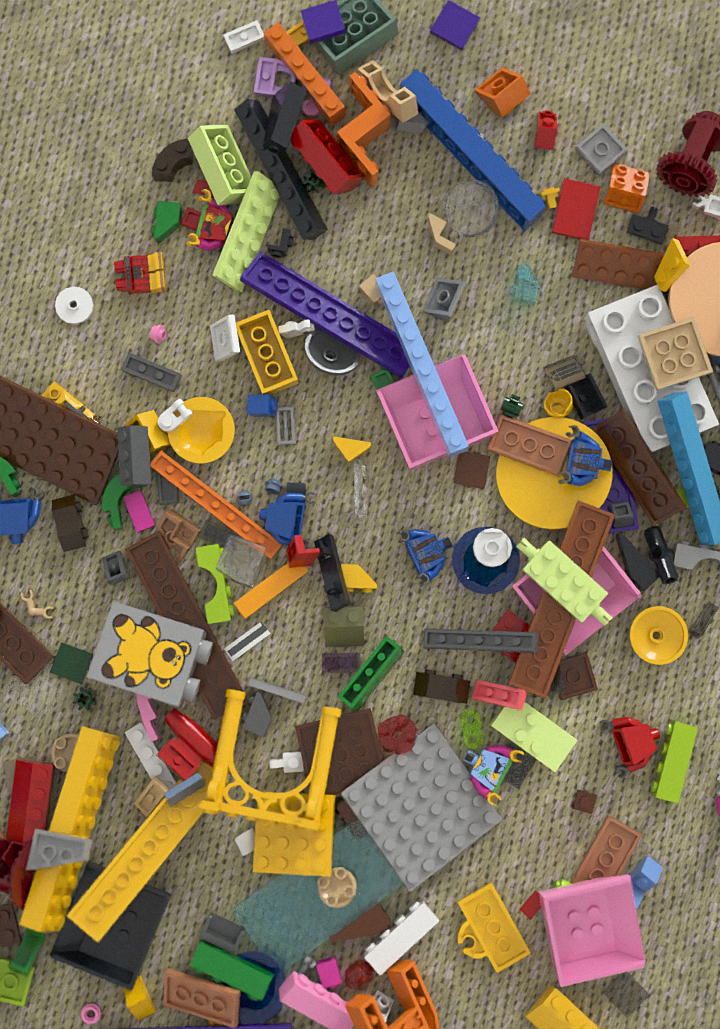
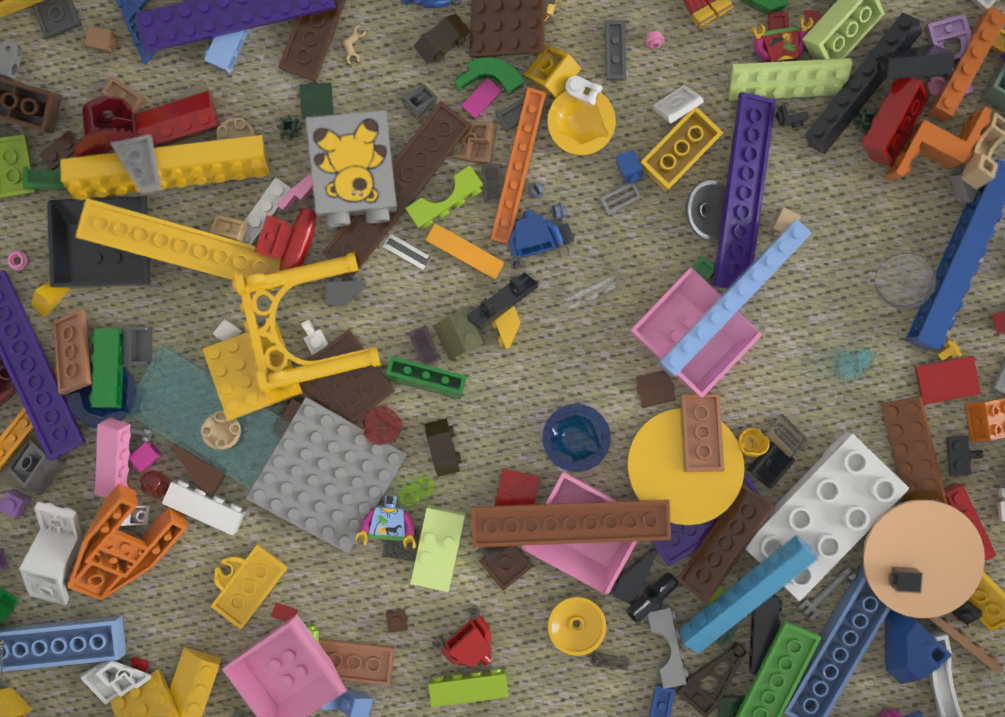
camera: 75 degrees right, 5 degrees up
(134, 455) = (529, 68): dark grey brick -> none
(184, 789) = (246, 254): sand blue tile -> none
(241, 561) = (476, 213): clear slope -> none
(277, 690) = (374, 298): light grey tile -> none
(293, 329) = (714, 164): white plate -> none
(298, 555) = (503, 264): red panel -> none
(351, 448) = (626, 268): yellow slope -> none
(425, 552) = (559, 379): torso -> none
(436, 228) = (871, 256): tan slope -> none
(444, 298) = (806, 293): light grey slope -> none
(481, 640) = (500, 465): dark grey tile -> none
(492, 547) = (590, 438): white tile -> none
(499, 695) = (457, 503): coral plate -> none
(511, 406) = (731, 400): dark green gear -> none
(564, 581) = (587, 519): yellowish green plate -> none
(583, 459) = (710, 488): torso -> none
(623, 514) = (675, 546): dark grey slope -> none
(672, 266) = (933, 494): yellow wing -> none
(675, 353) = (849, 532): tan plate -> none

